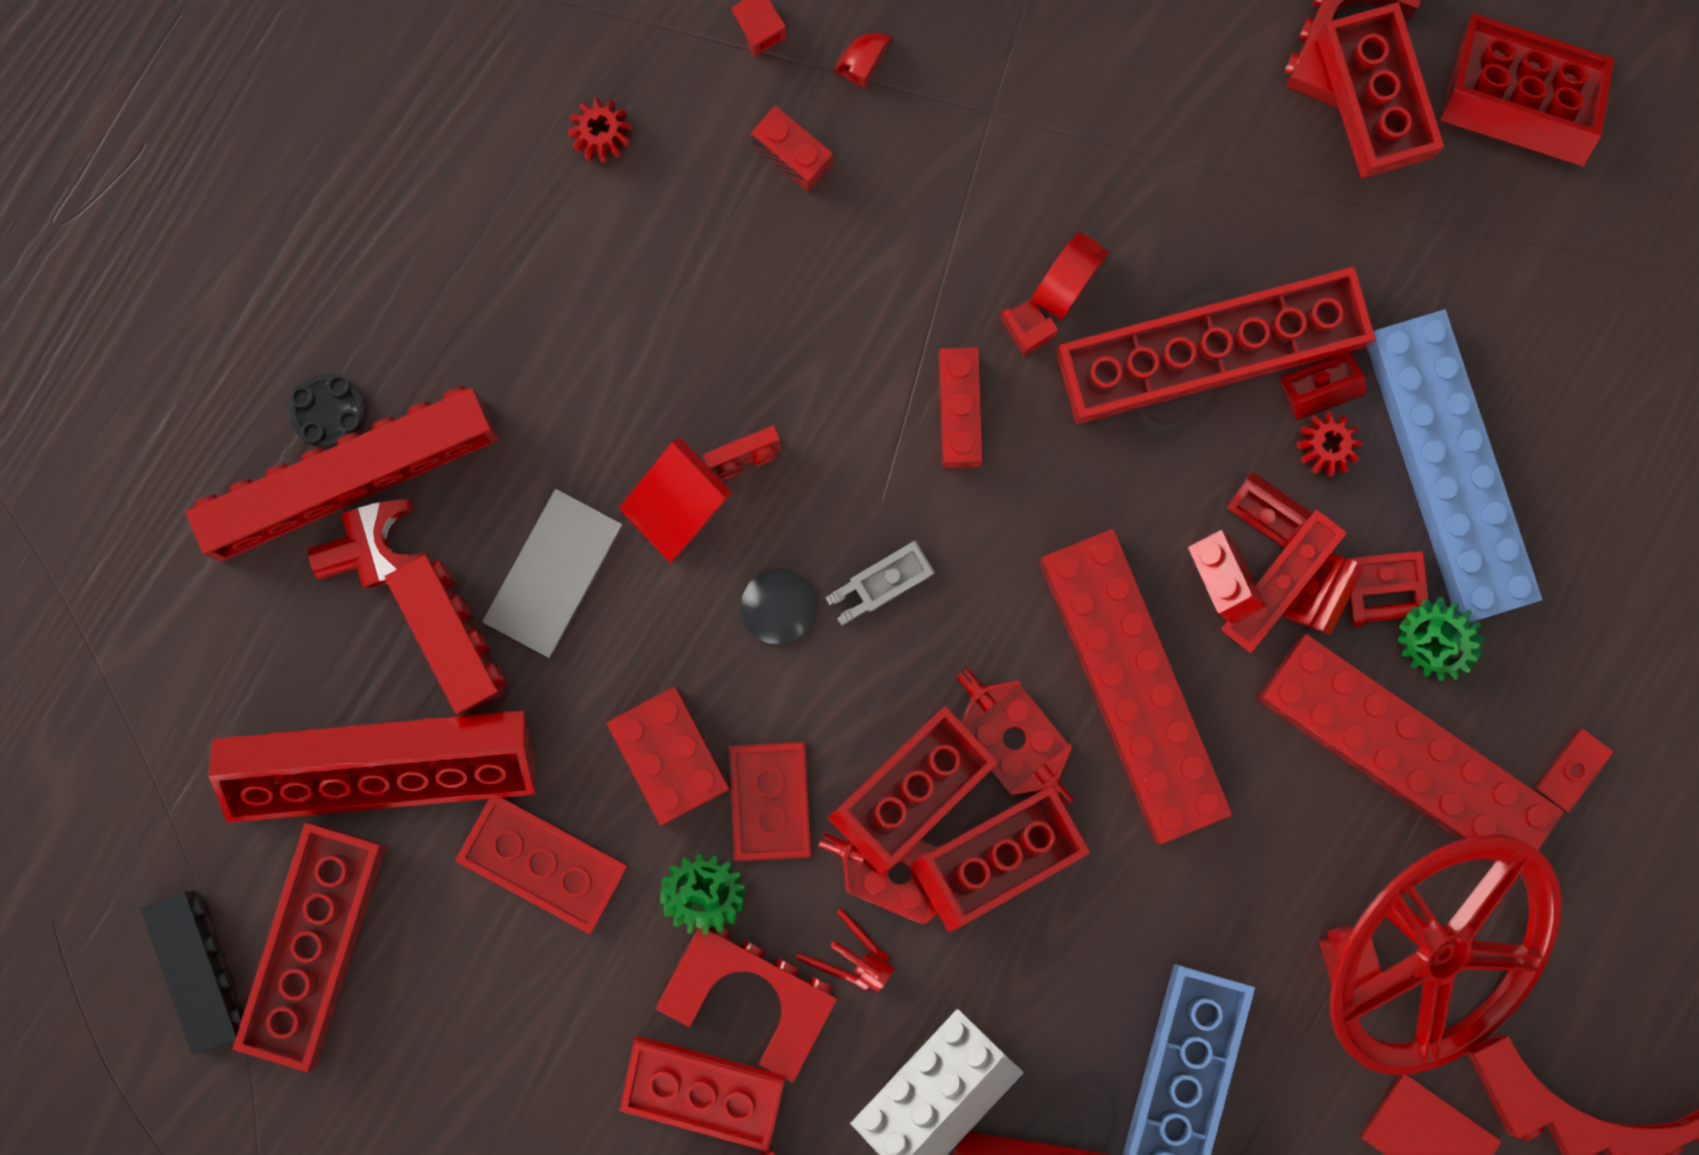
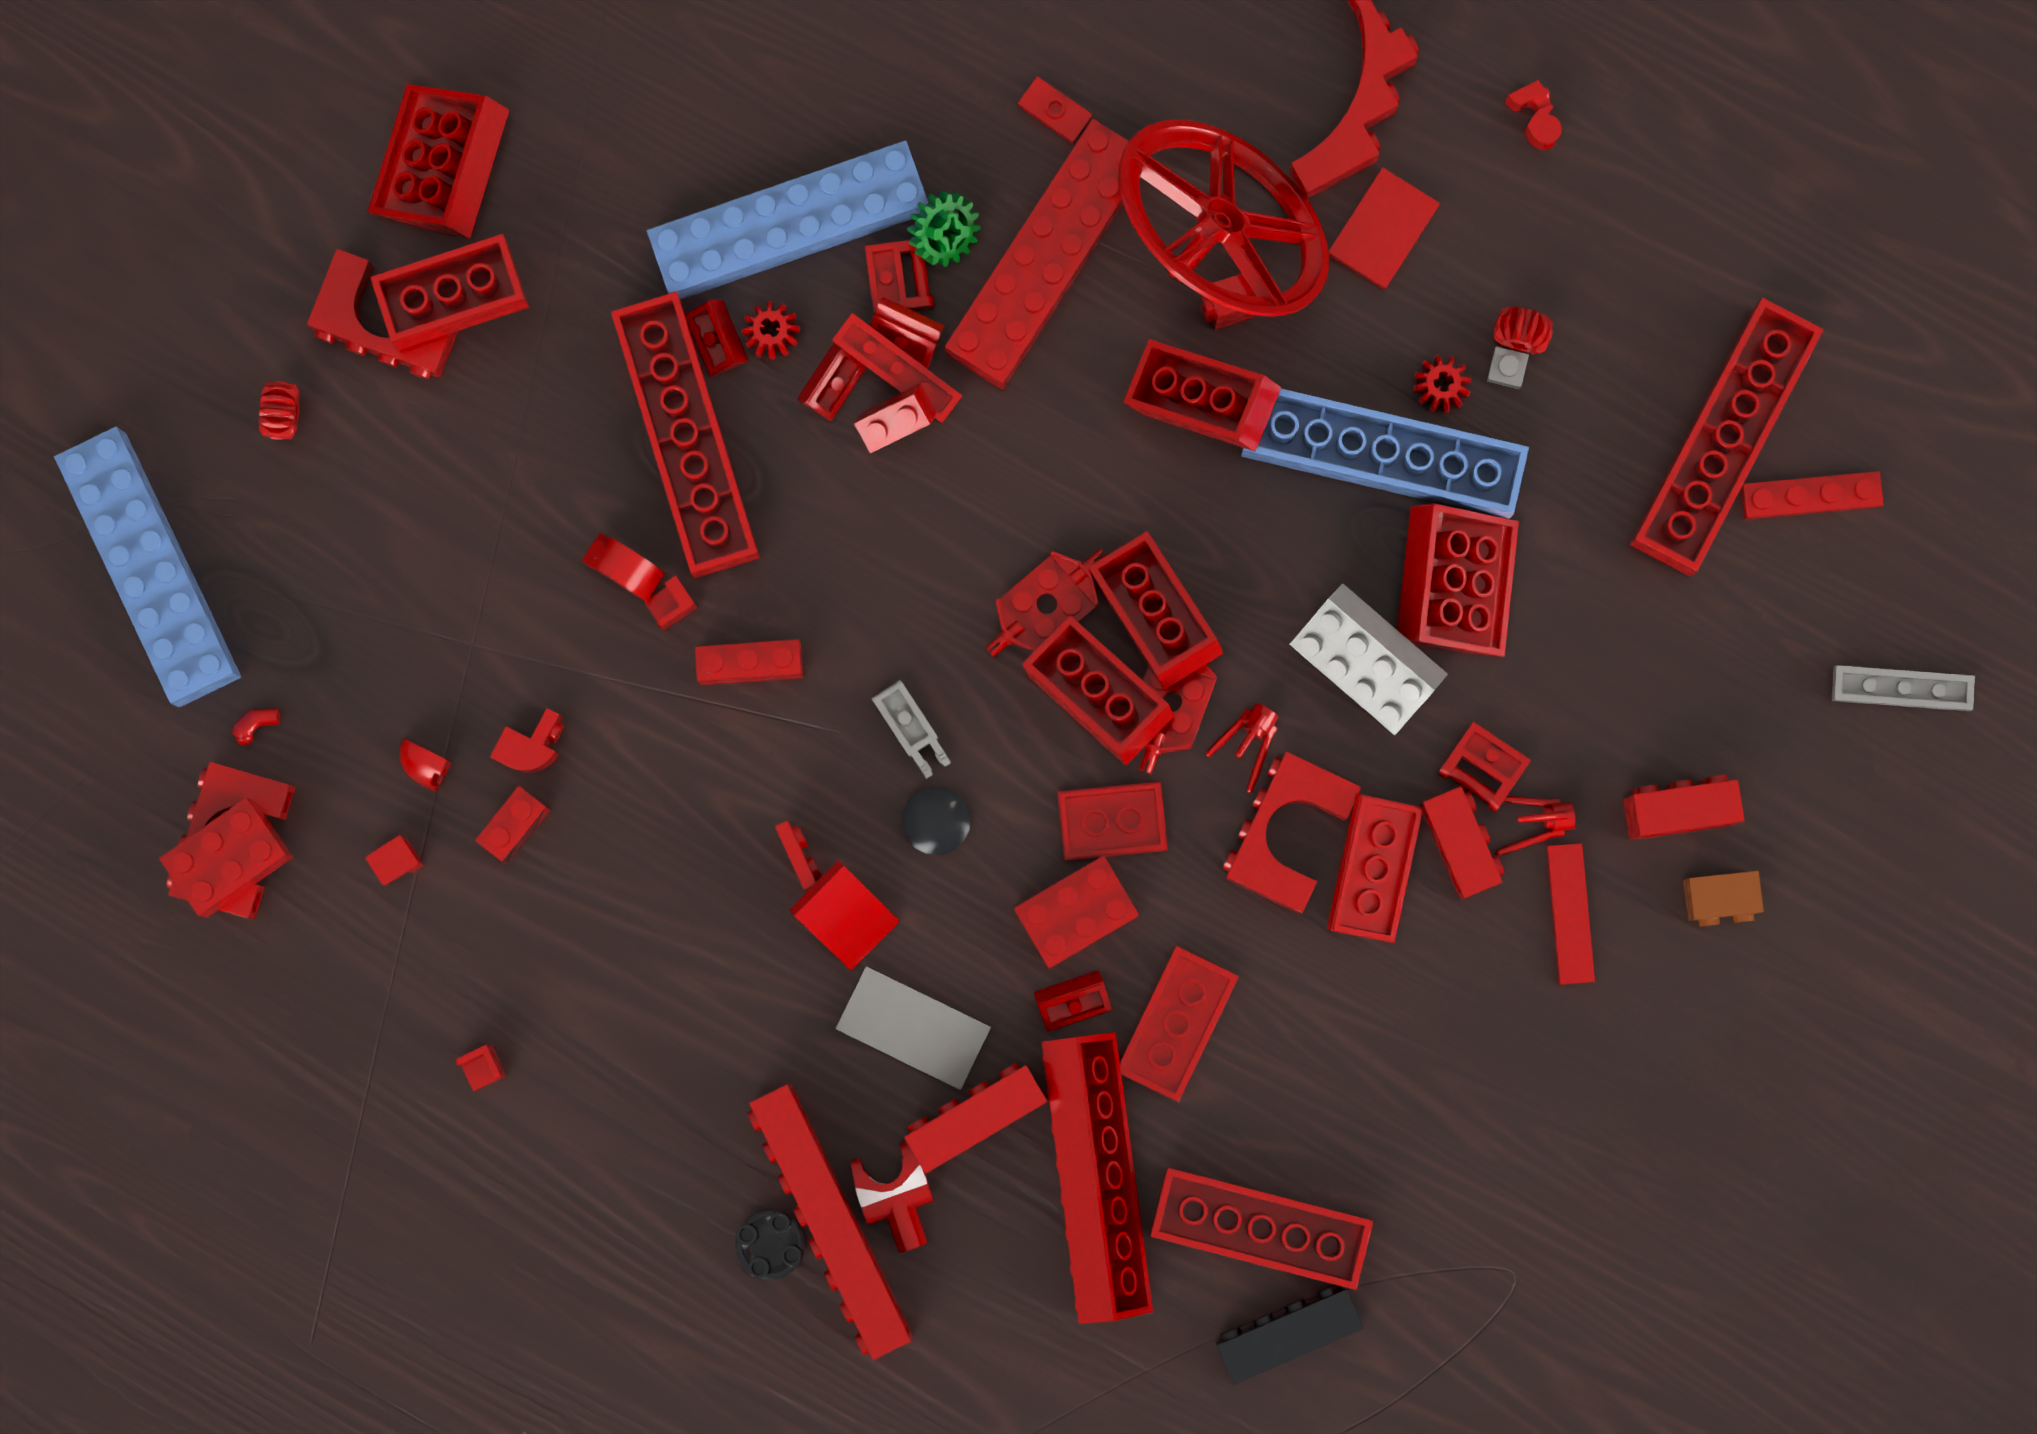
camera: 90 degrees left, 0 degrees up
(533, 110) = (481, 1067): none -> red panel
(574, 749) = (1072, 1001): none -> red slope
(595, 118) = (489, 1009): red gear -> none
(700, 897) = (1198, 876): green gear -> none
(870, 165) = (530, 754): none -> red brick
(1135, 687) = (996, 497): red brick -> none
(1243, 922) = (1202, 395): none -> red brick

